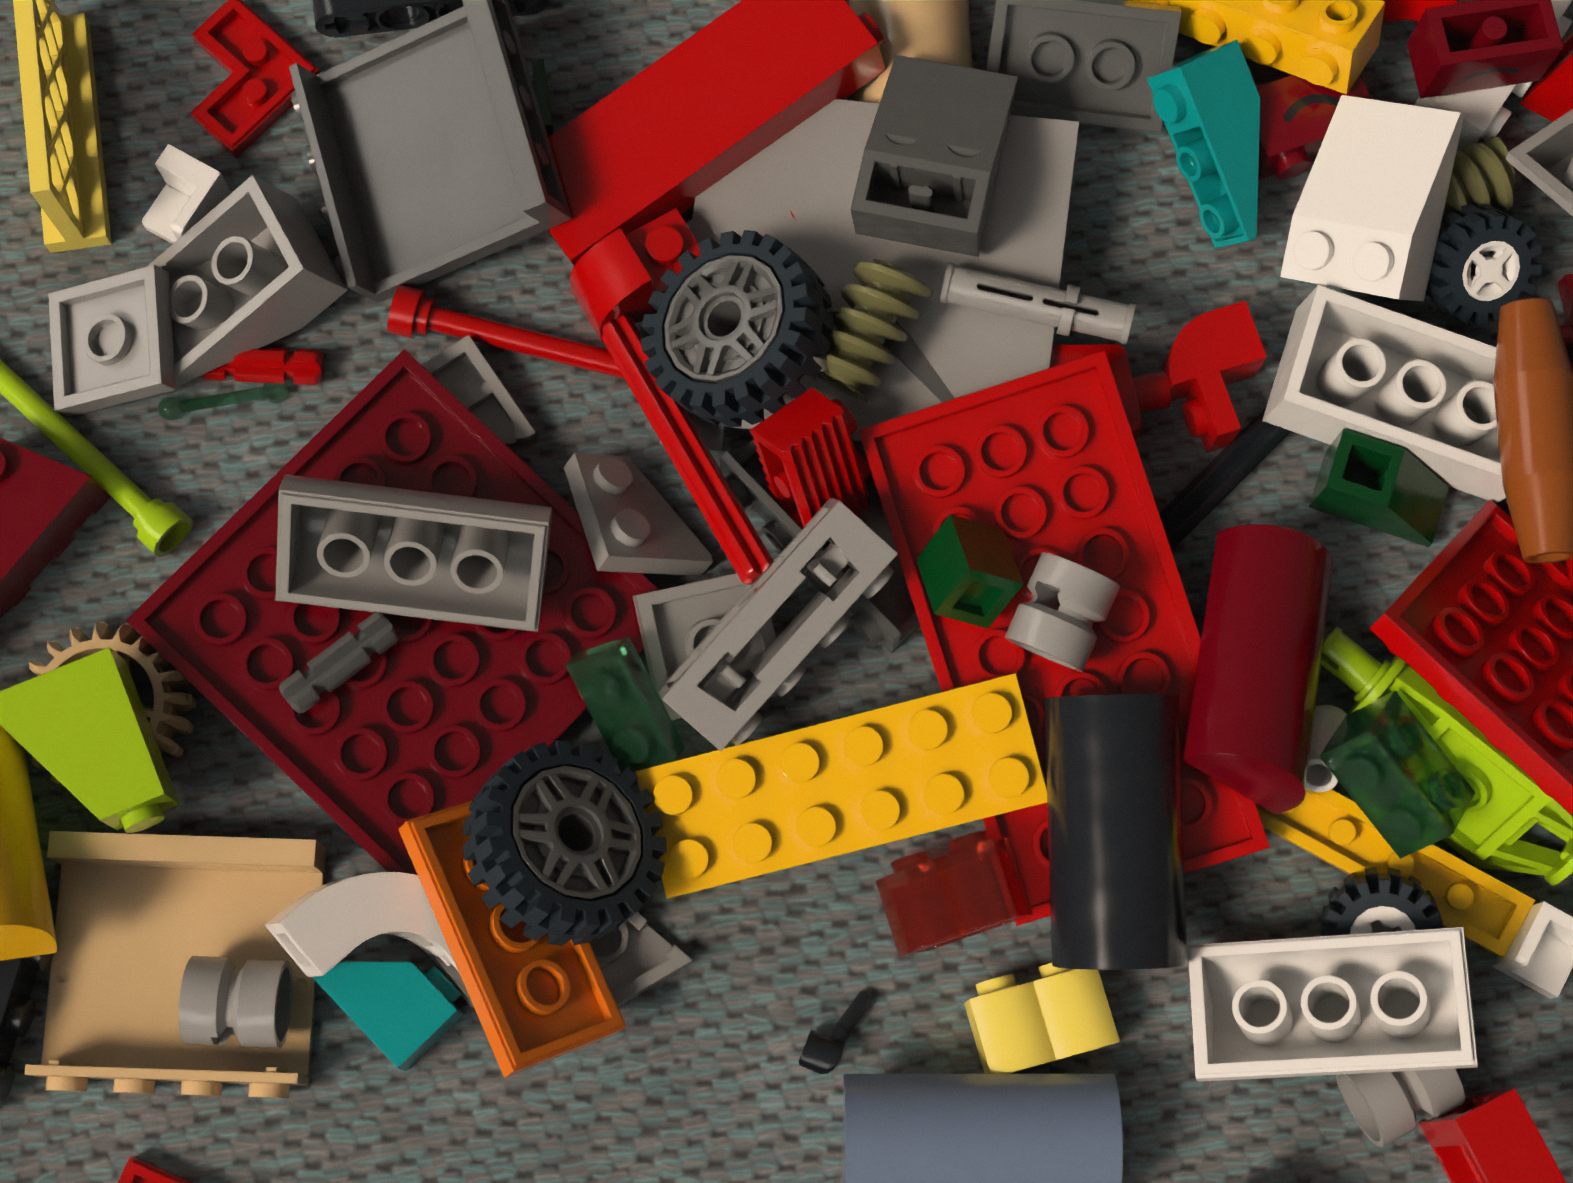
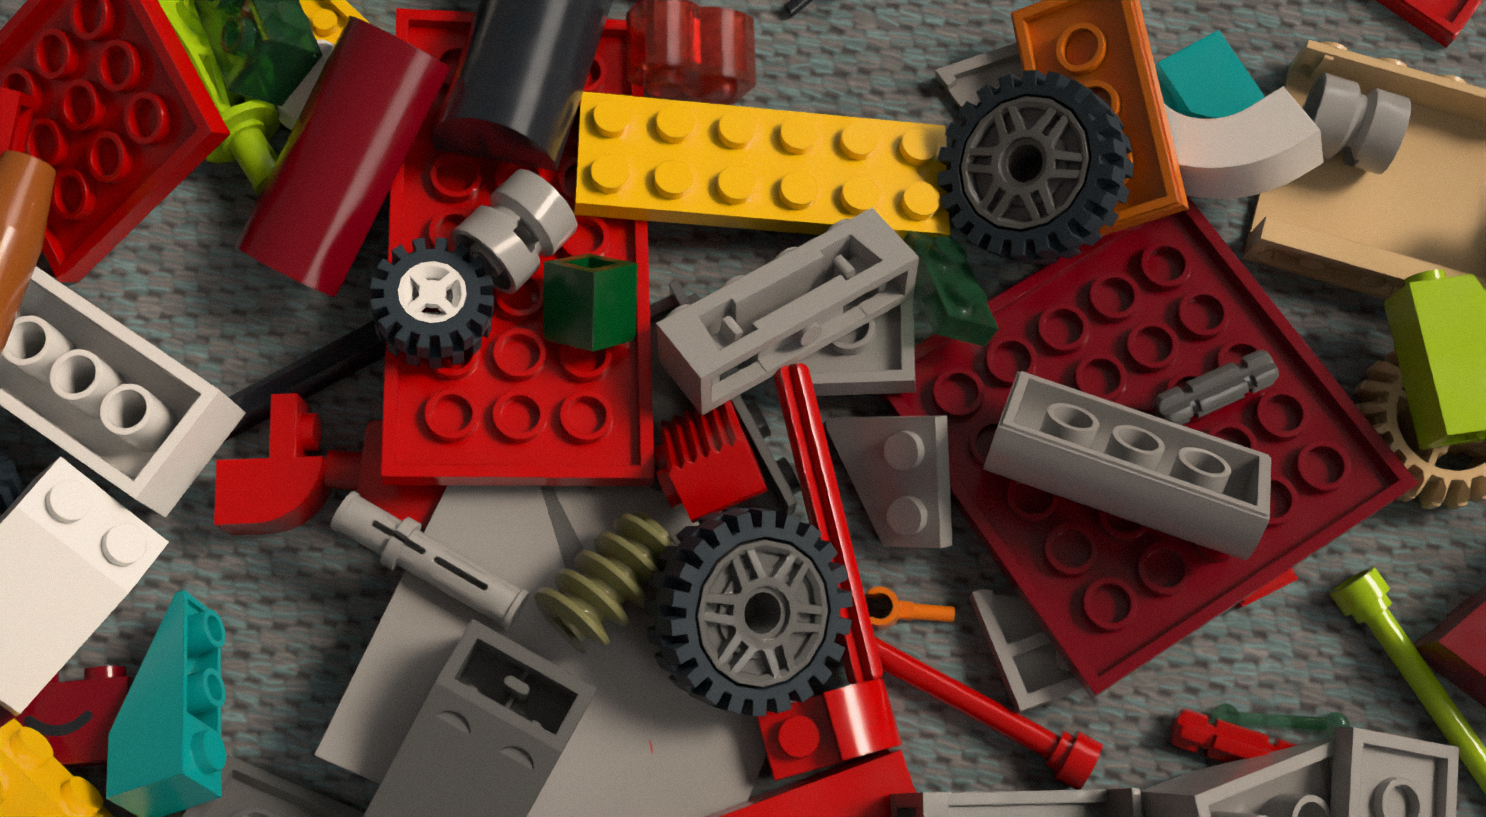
camera: 165 degrees left, 0 degrees up
(595, 406) = (908, 610): none -> orange hand
(1126, 499) = (433, 281): none -> black wheel
(1379, 488) = (165, 312): dark green slope -> none

